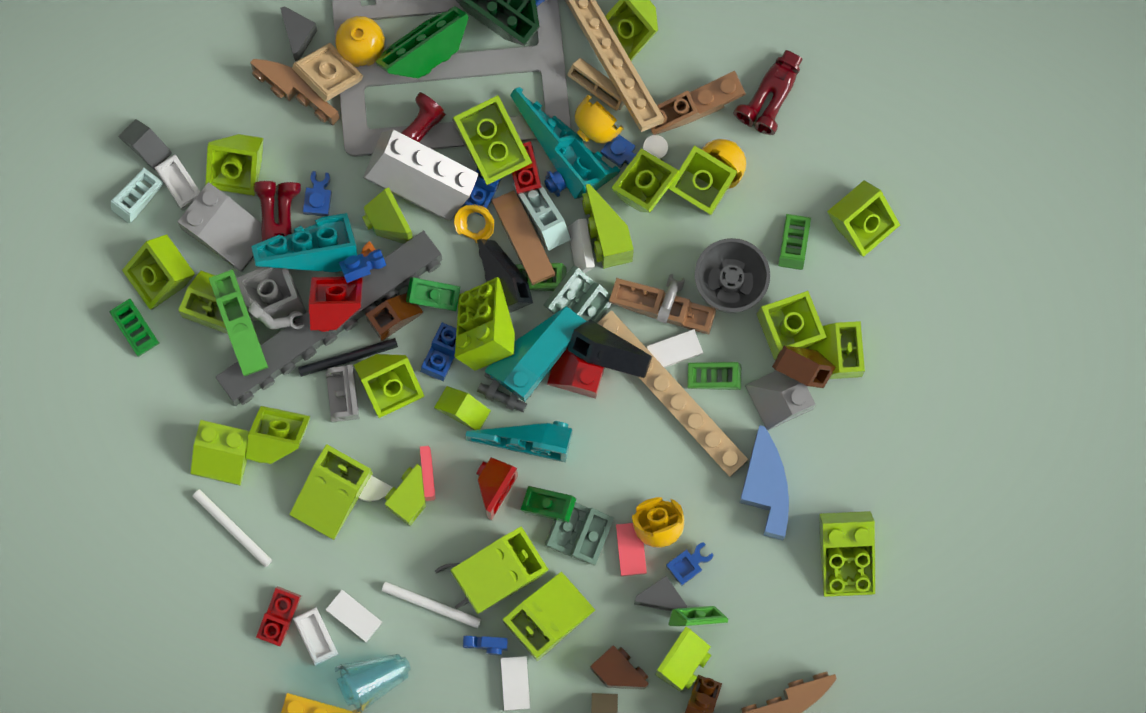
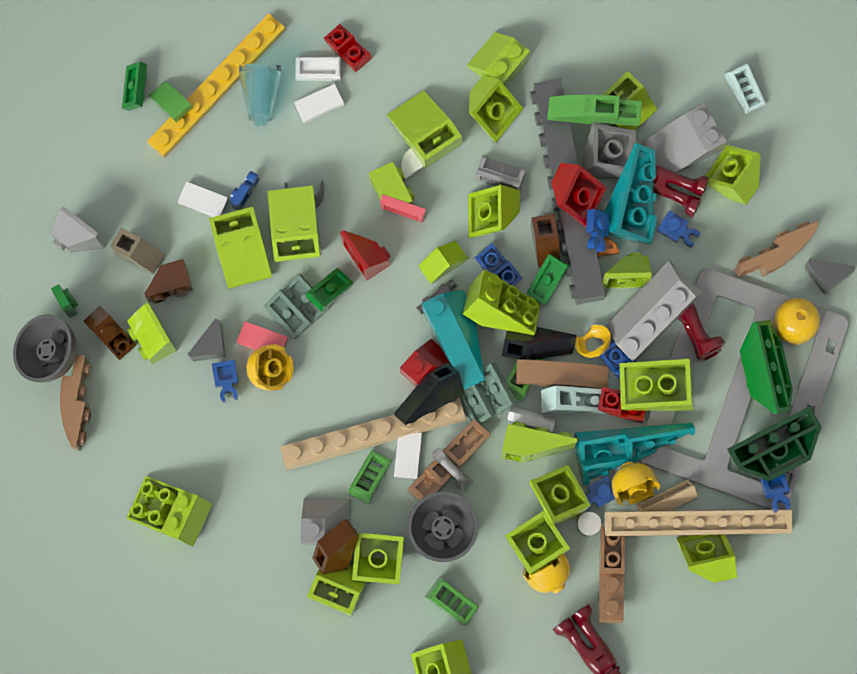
camera: 120 degrees right, 0 degrees up
(121, 310) = (635, 47): green slope -> none
(145, 143) = (786, 112): dark grey slope -> none
(158, 271) = (672, 76): lime slope -> none
(178, 181) = (742, 125): white tile -> none
(232, 528) = (431, 45): white bar -> none
(258, 312) = (595, 128): light grey arm -> none
(327, 72) = (779, 279): tan tile -> none
(348, 357) = (529, 194): black bar -> none
(431, 605) = (299, 164): white bar -> none
(540, 440) = (383, 308): teal wedge -> none
(554, 182) = (597, 423): blue plate -> none
(696, 616) = (176, 360): bright green slope -> none
(767, 485) = (257, 473): medium blue slope -> none

